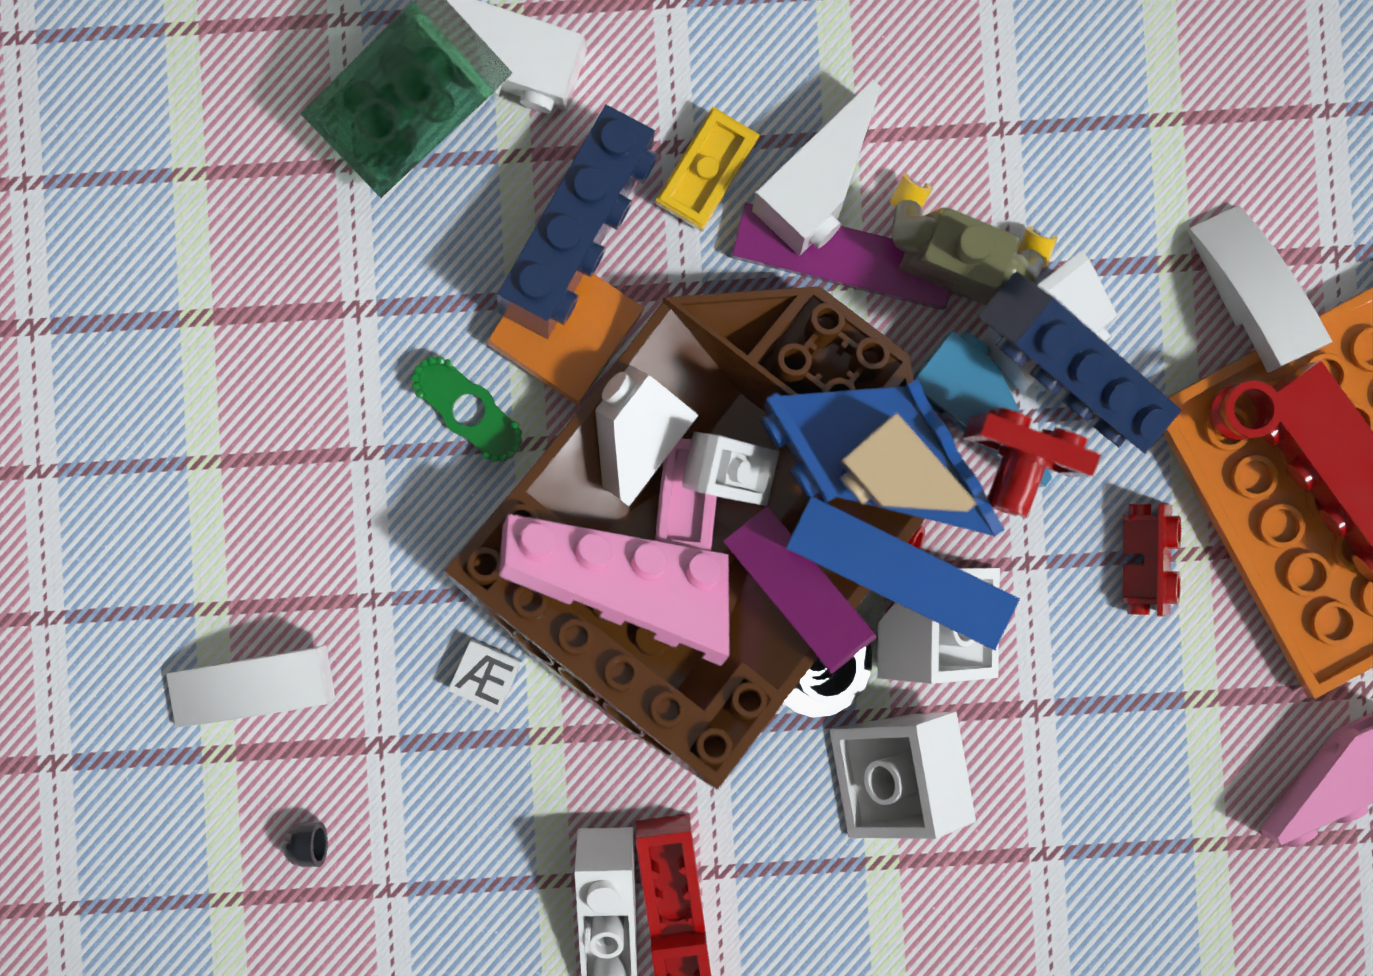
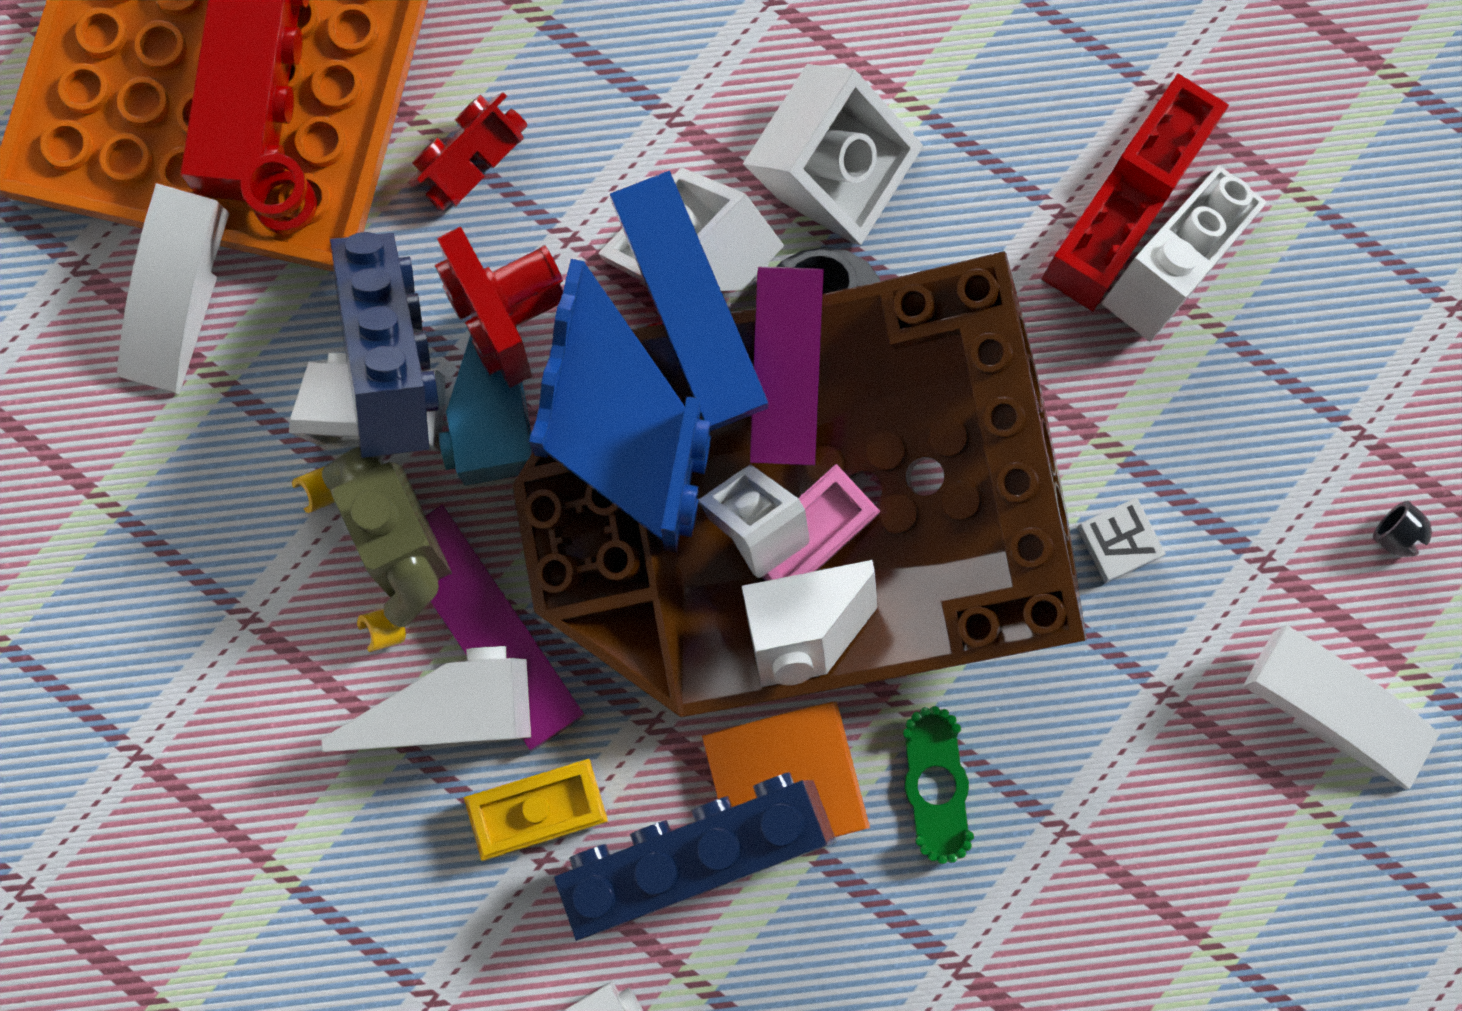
camera: 140 degrees left, 10 degrees down
(627, 578) = (929, 495): bright pink wing -> none
(901, 472) = (616, 374): tan slope -> none

